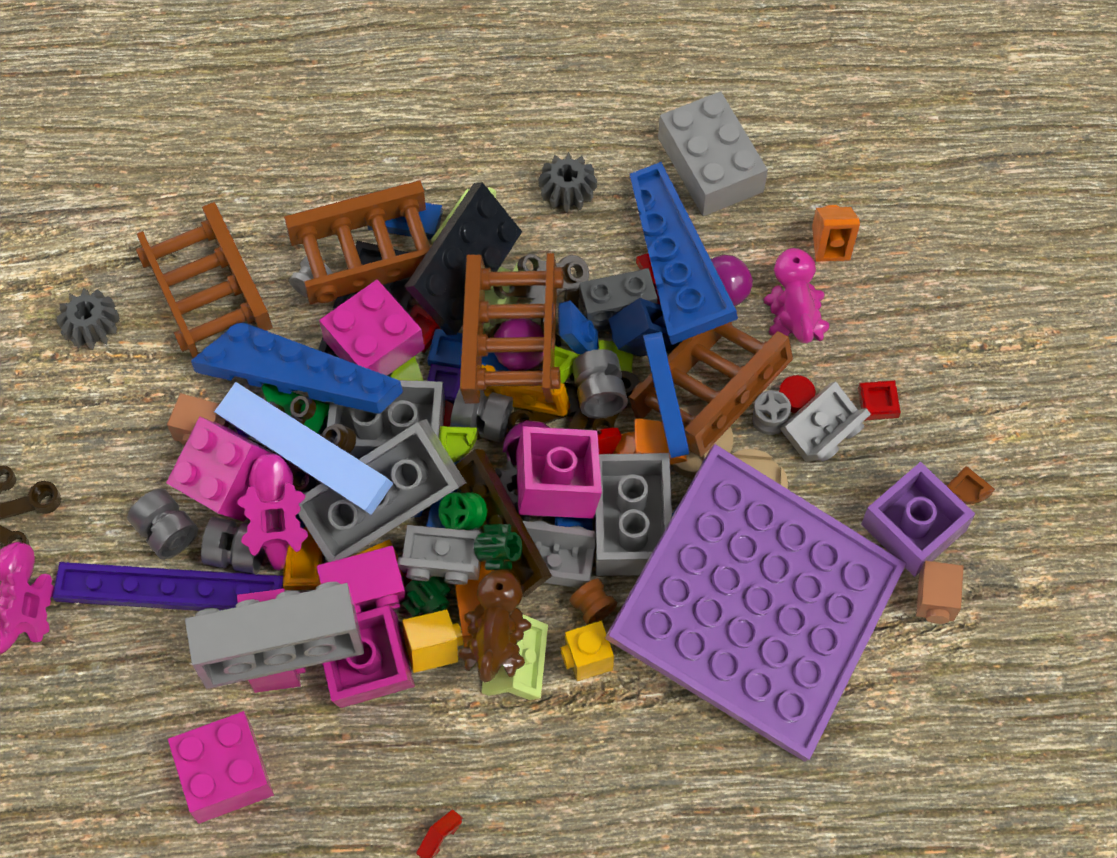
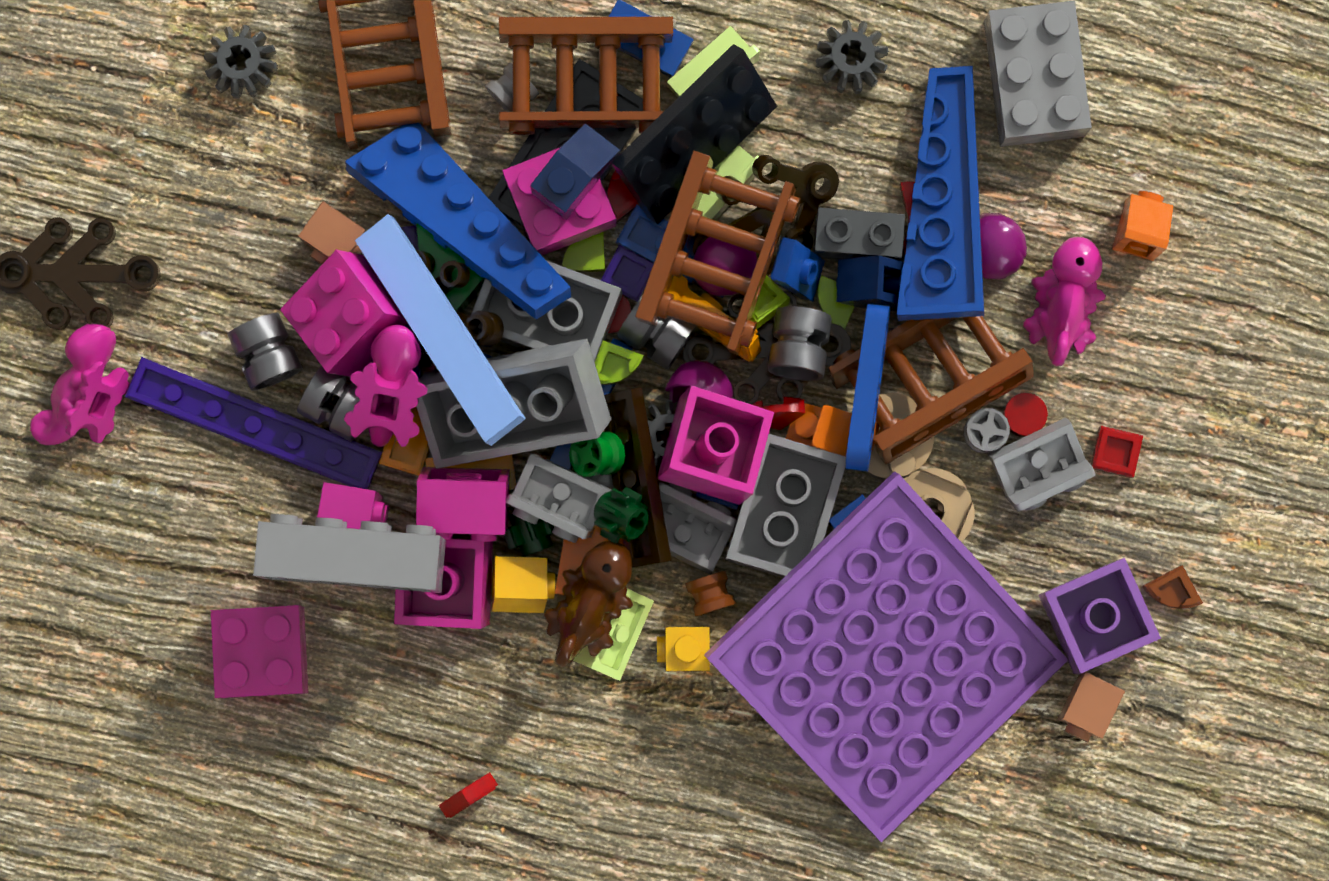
camera: 15 degrees right, 20 degrees up
(374, 299) = (573, 171): none -> dark blue slope

